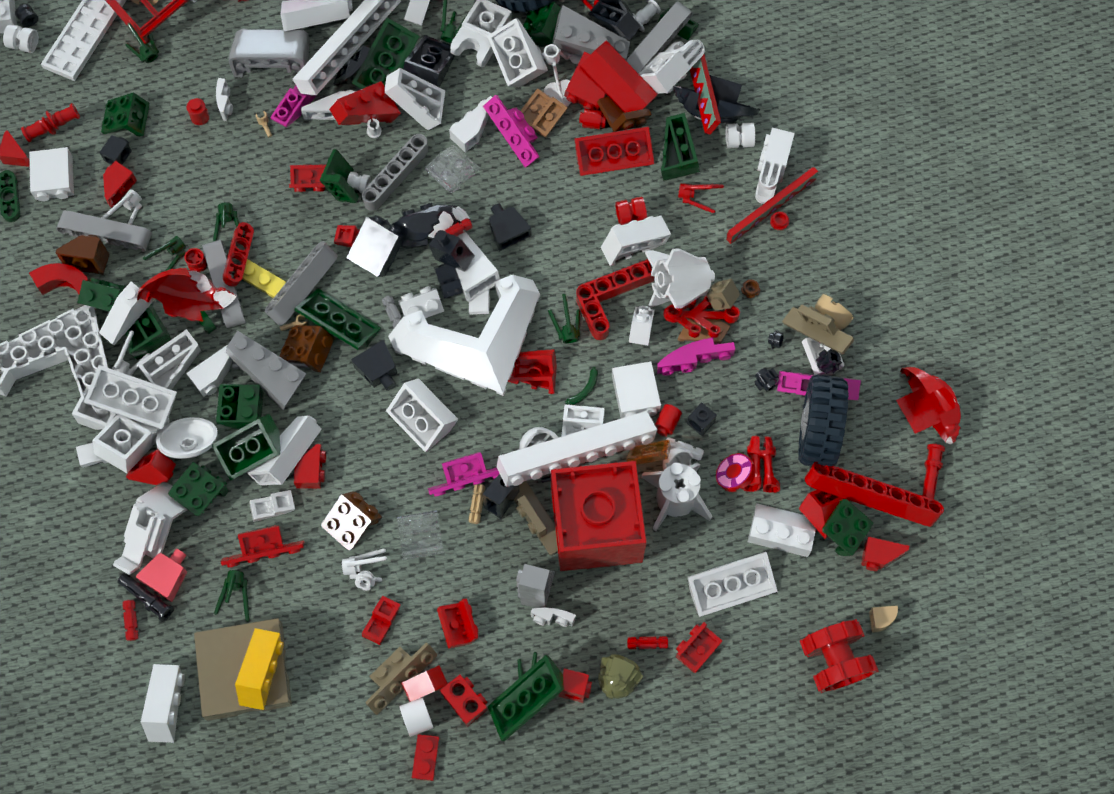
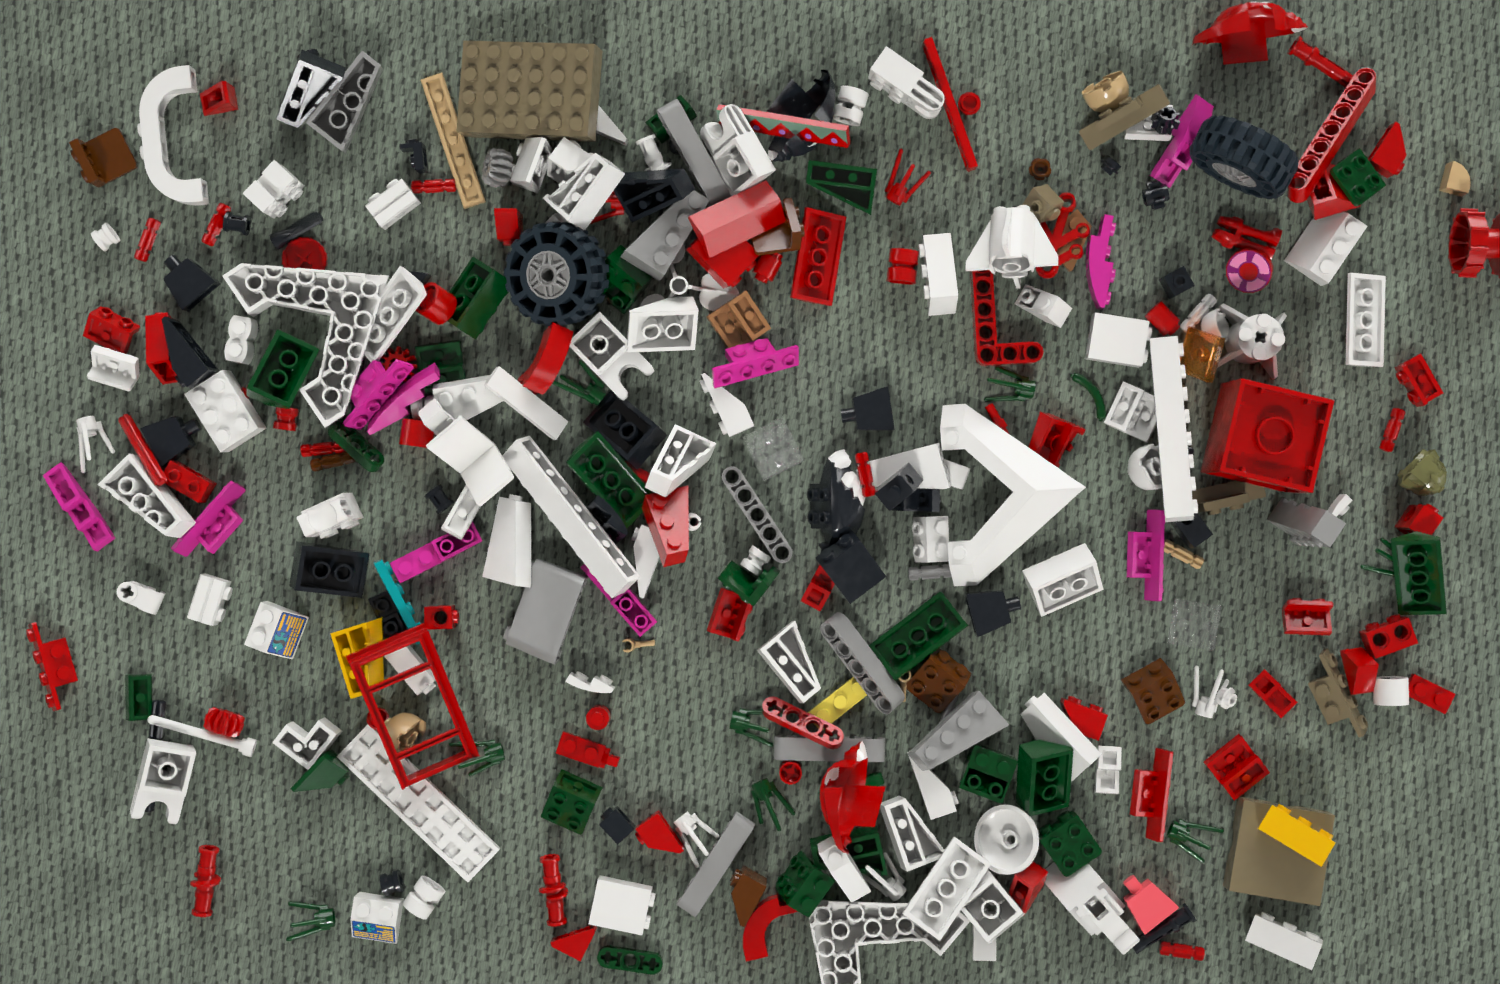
camera: 70 degrees left, 20 degrees up
(169, 114) = (586, 751): none -> red hinge
(285, 230) = (790, 662): none -> white wedge
(307, 612) = (1236, 767): none -> red slope
(534, 325) = (995, 417): none -> red bar

